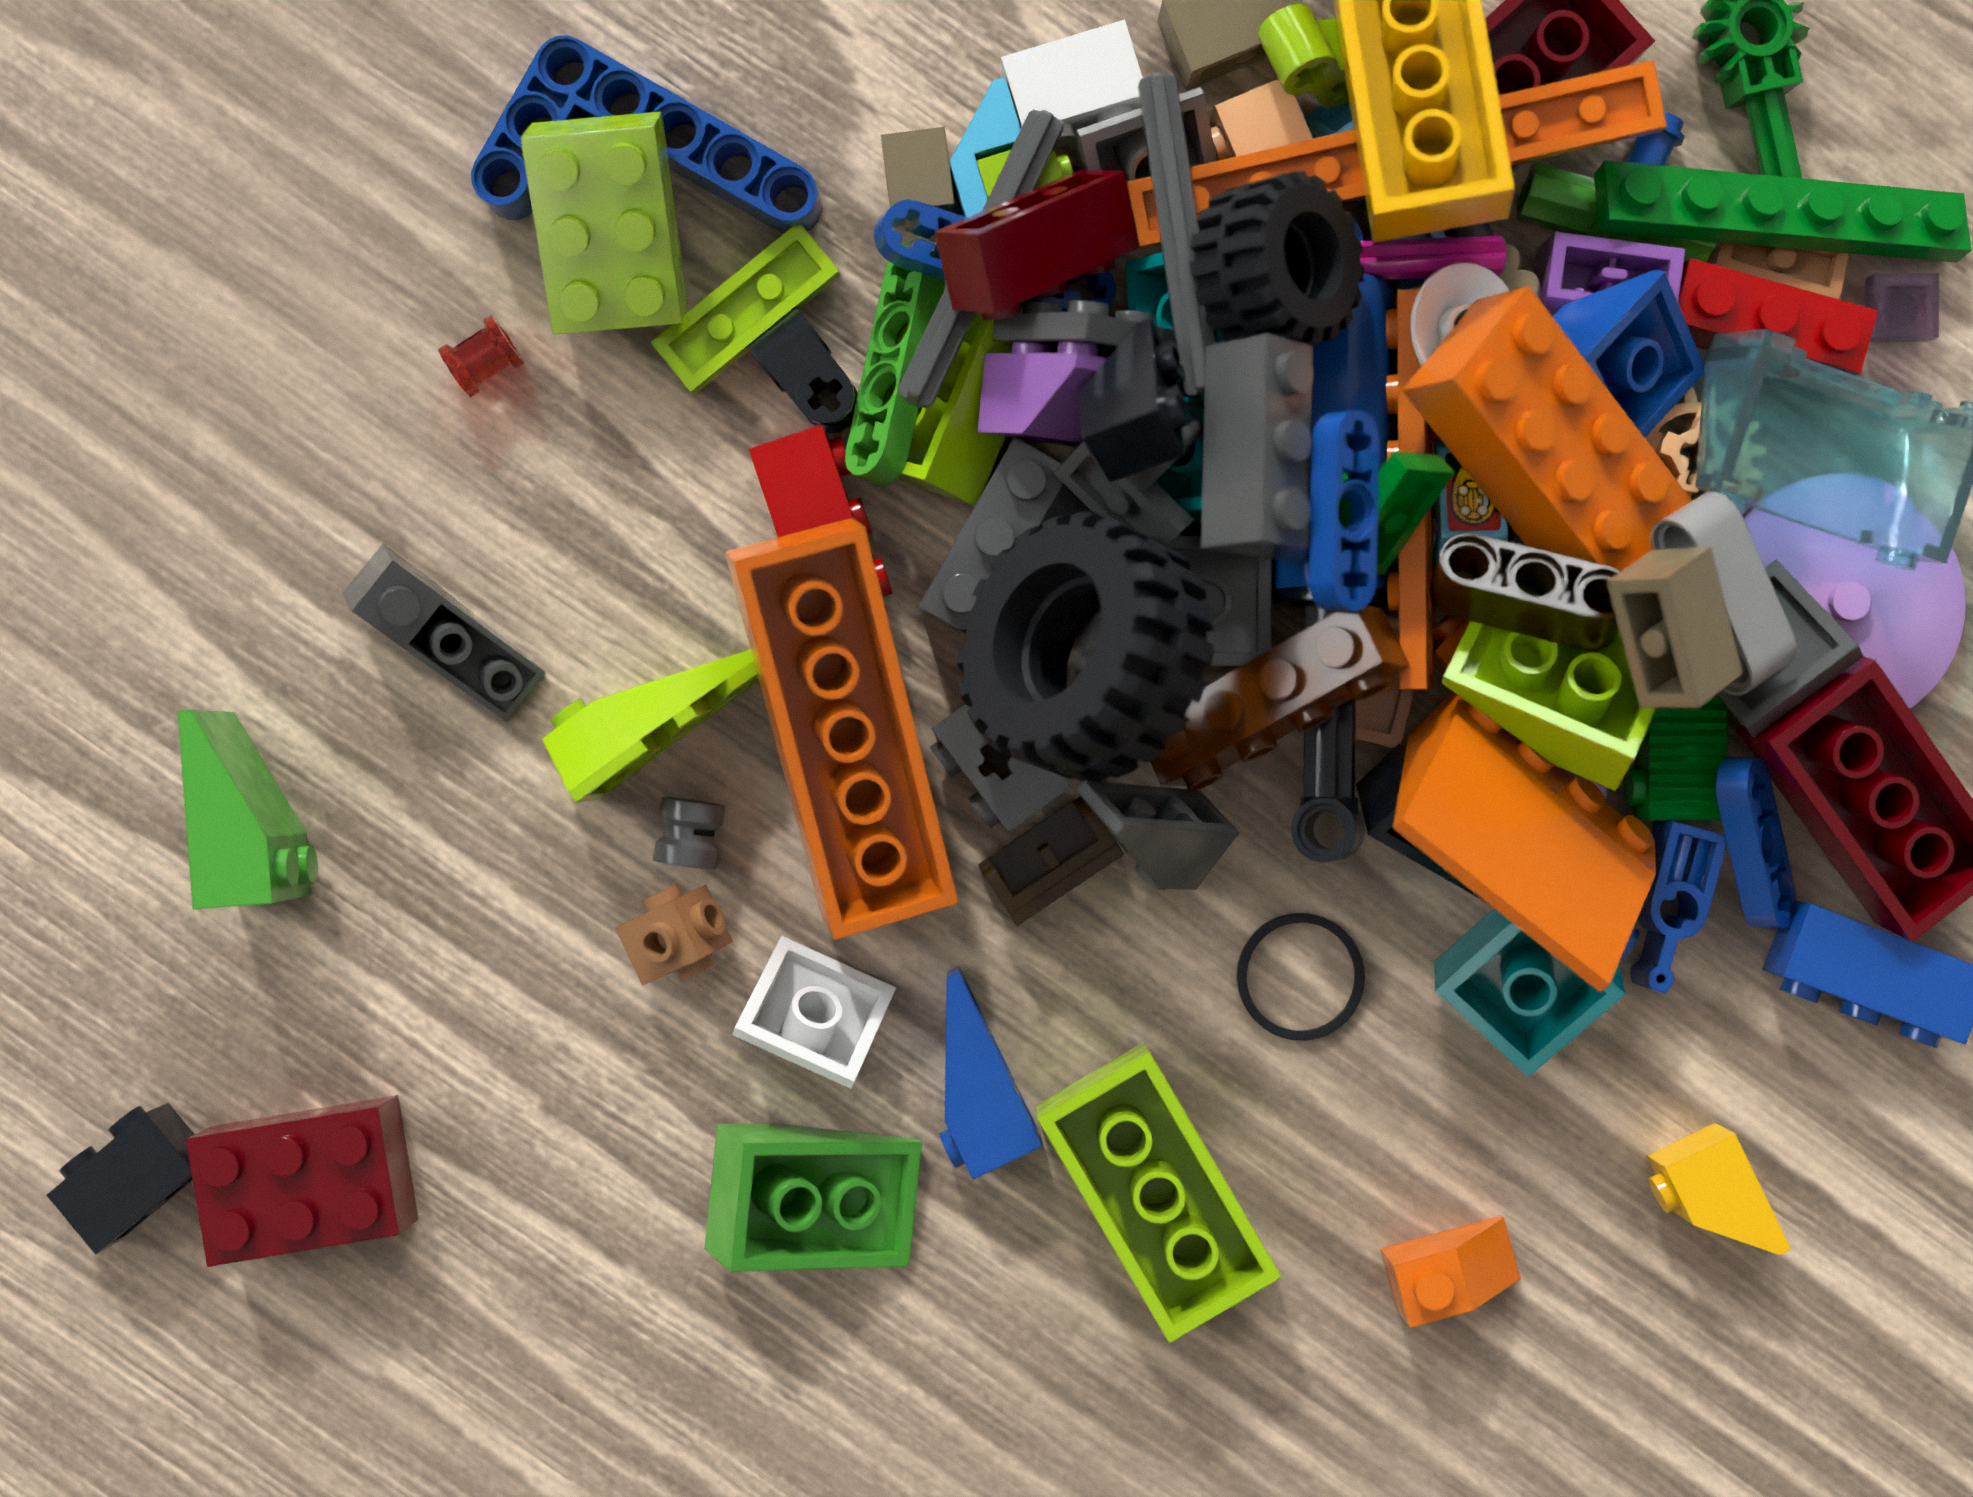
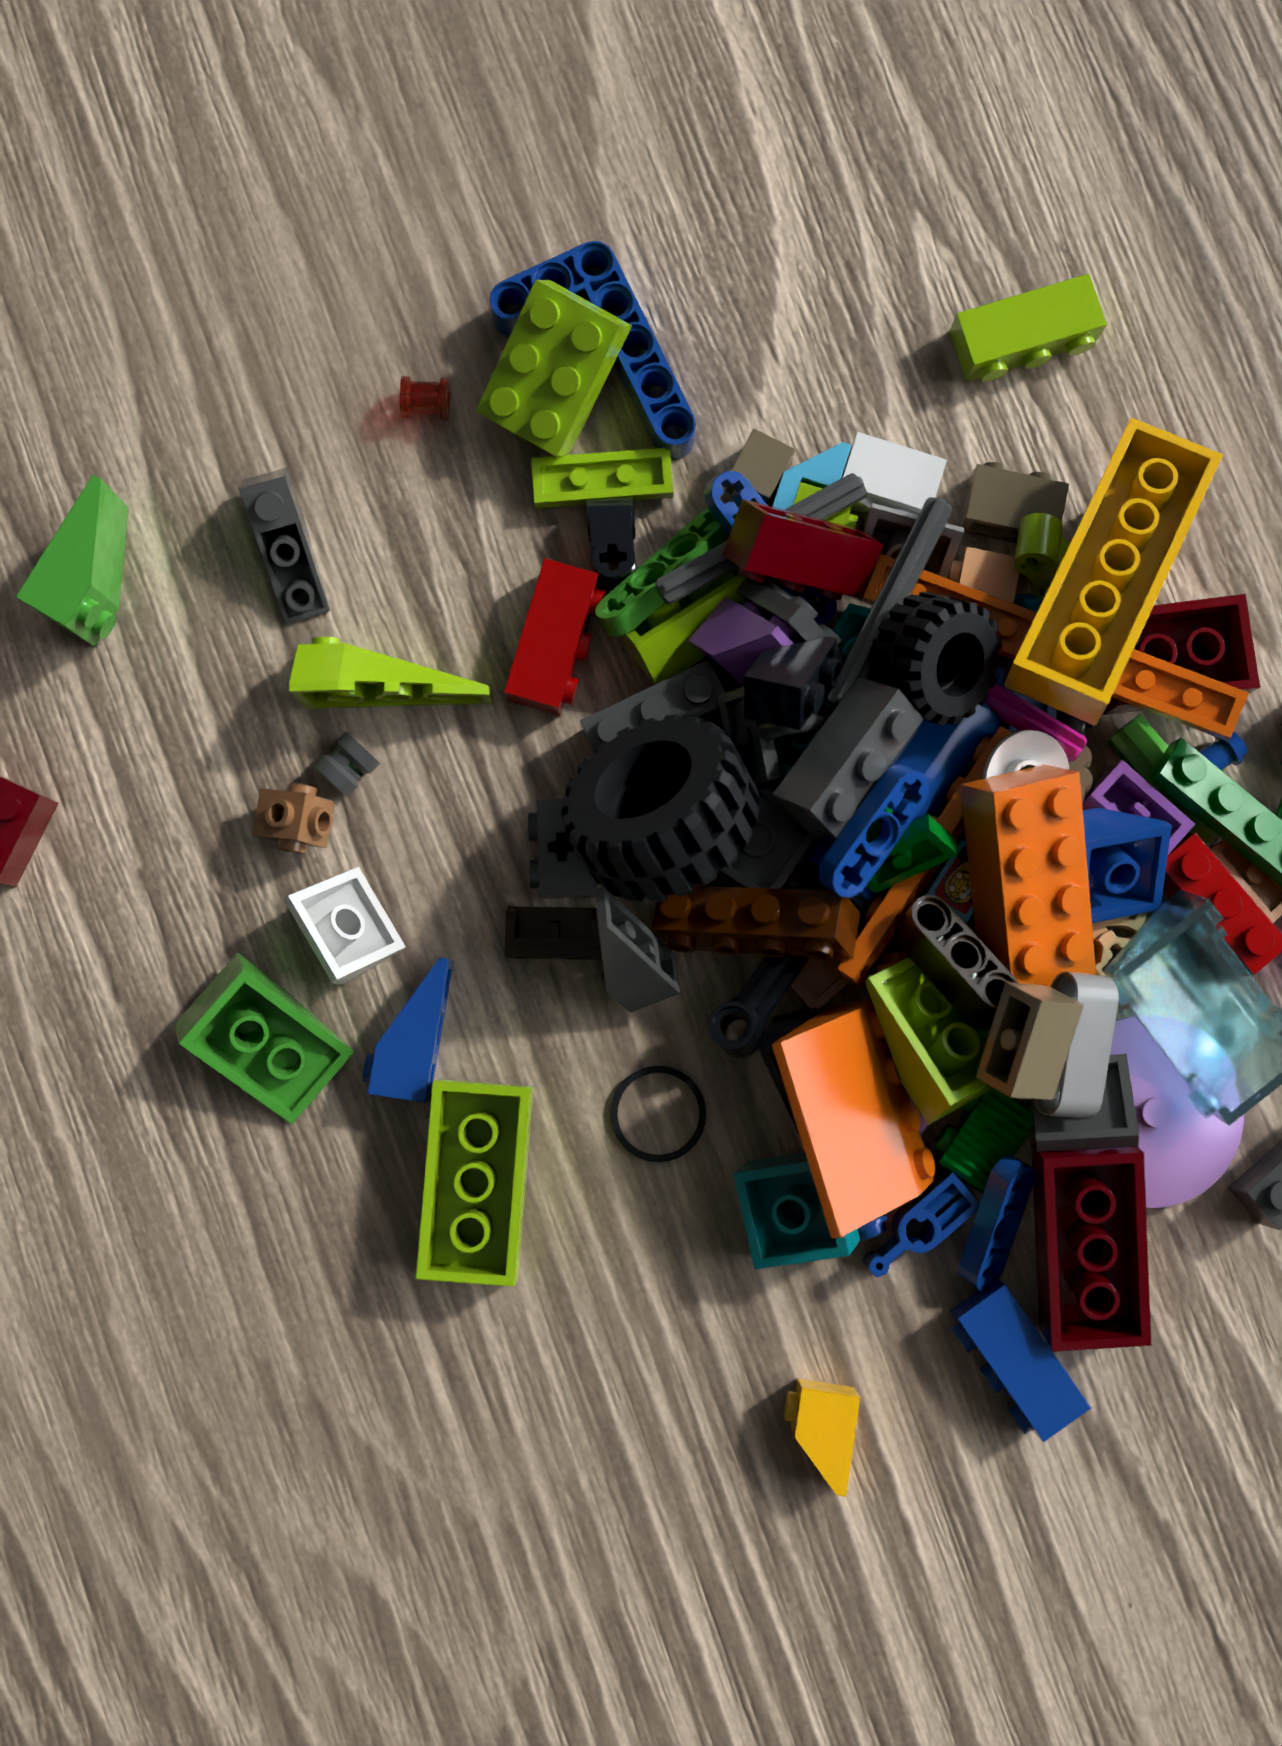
camera: 30 degrees right, 5 degrees down
(843, 726) = (482, 760): orange brick -> none
(1450, 1270) = (625, 1362): orange slope -> none

